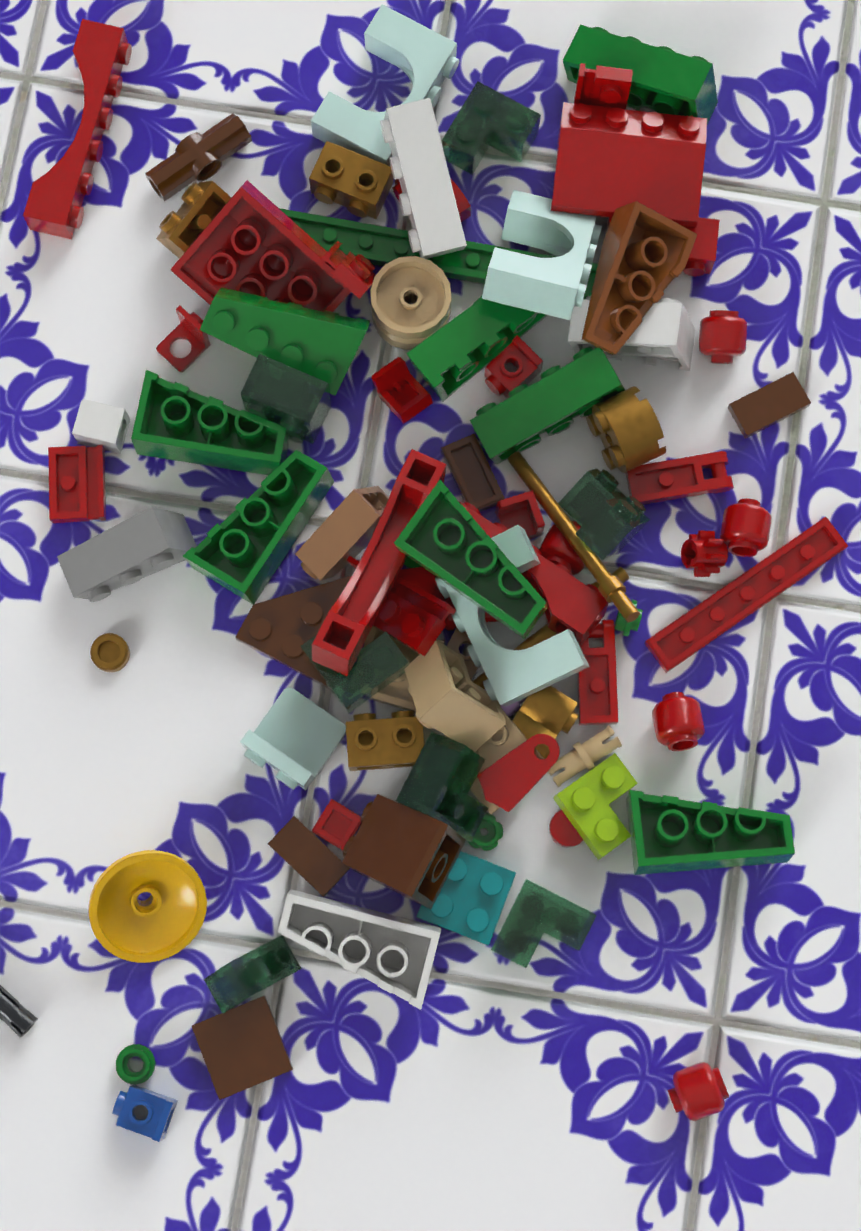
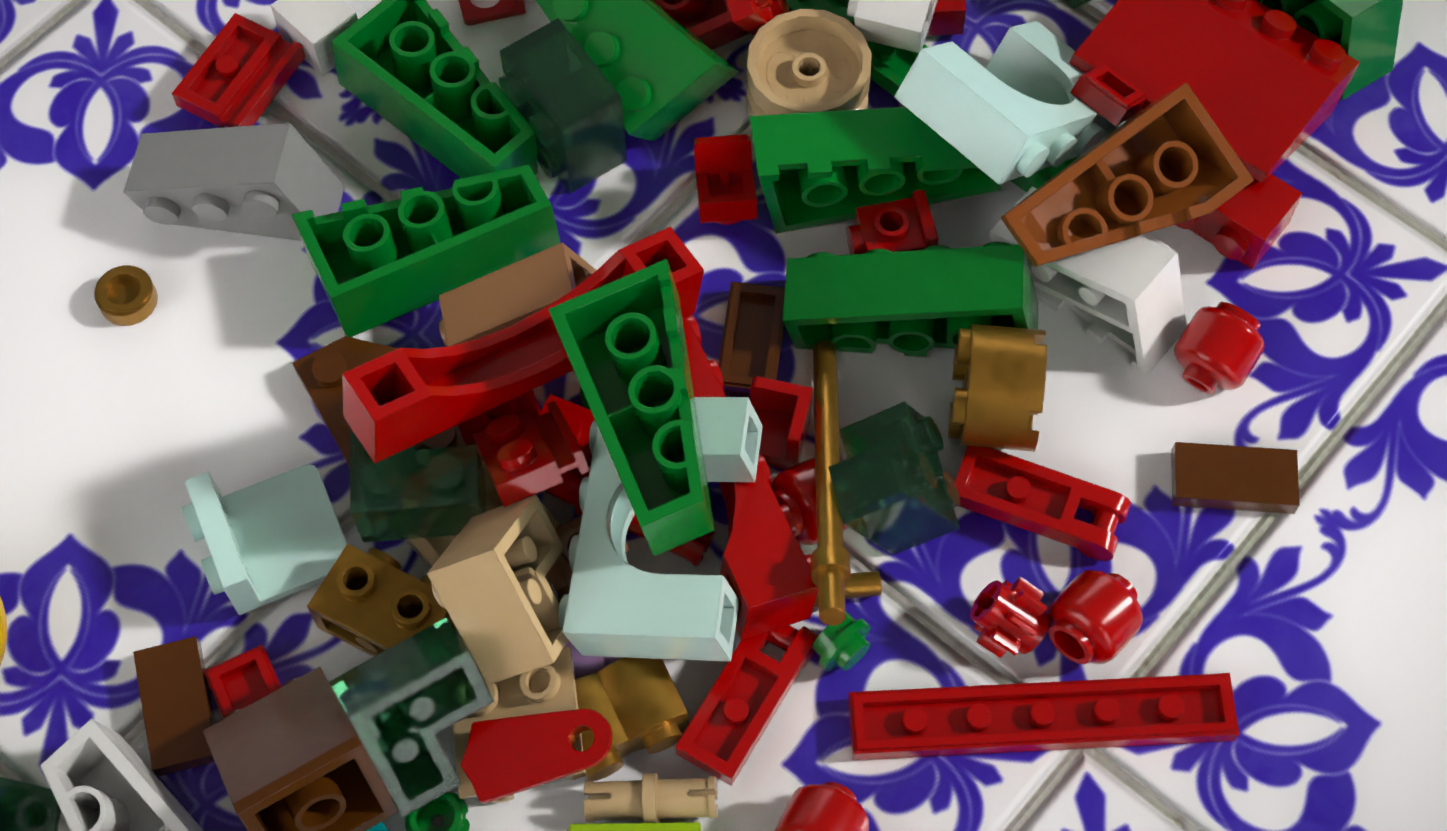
camera: 35 degrees right, 15 degrees down
(588, 222) = (1109, 94): none -> red tile

